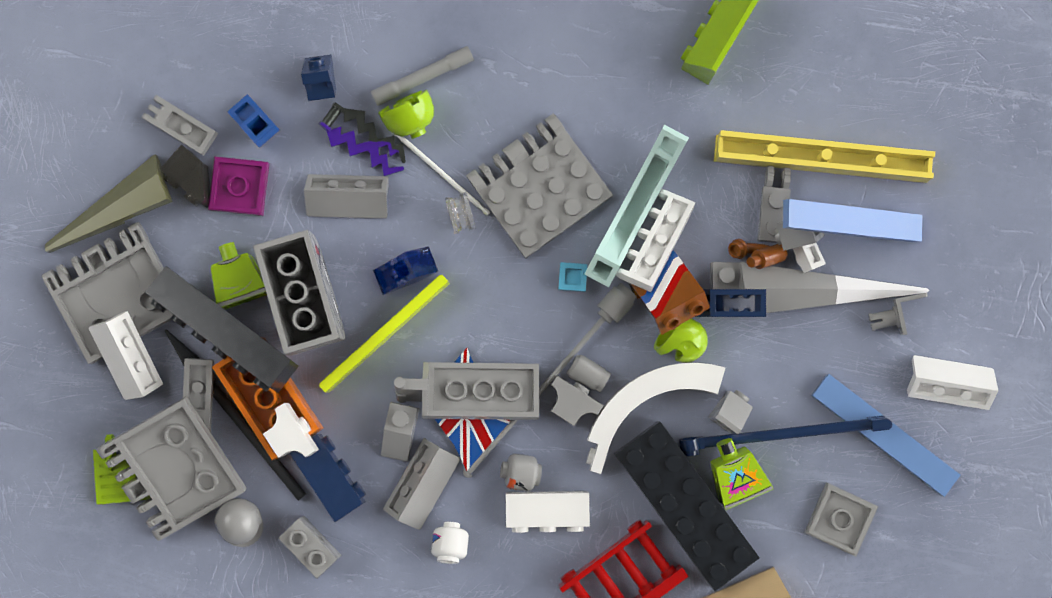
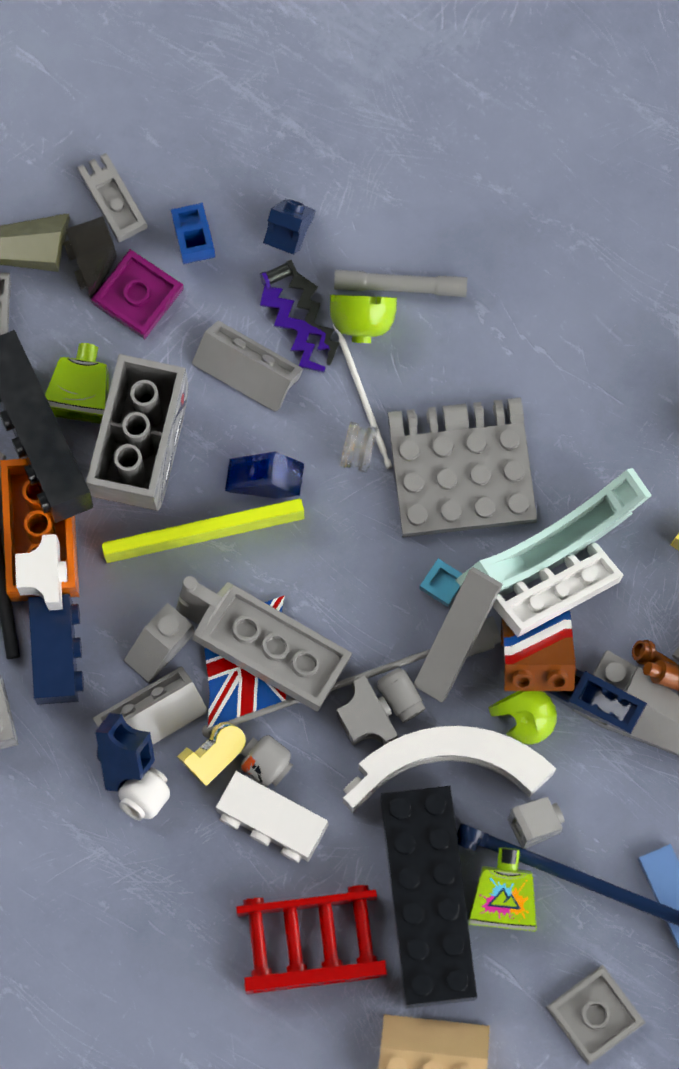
camera: 30 degrees right, 10 degrees down
(419, 525) = (122, 751): none -> dark blue brick
(482, 488) = (216, 753): none -> light yellow leg
(606, 311) = (457, 634): none -> light grey tile

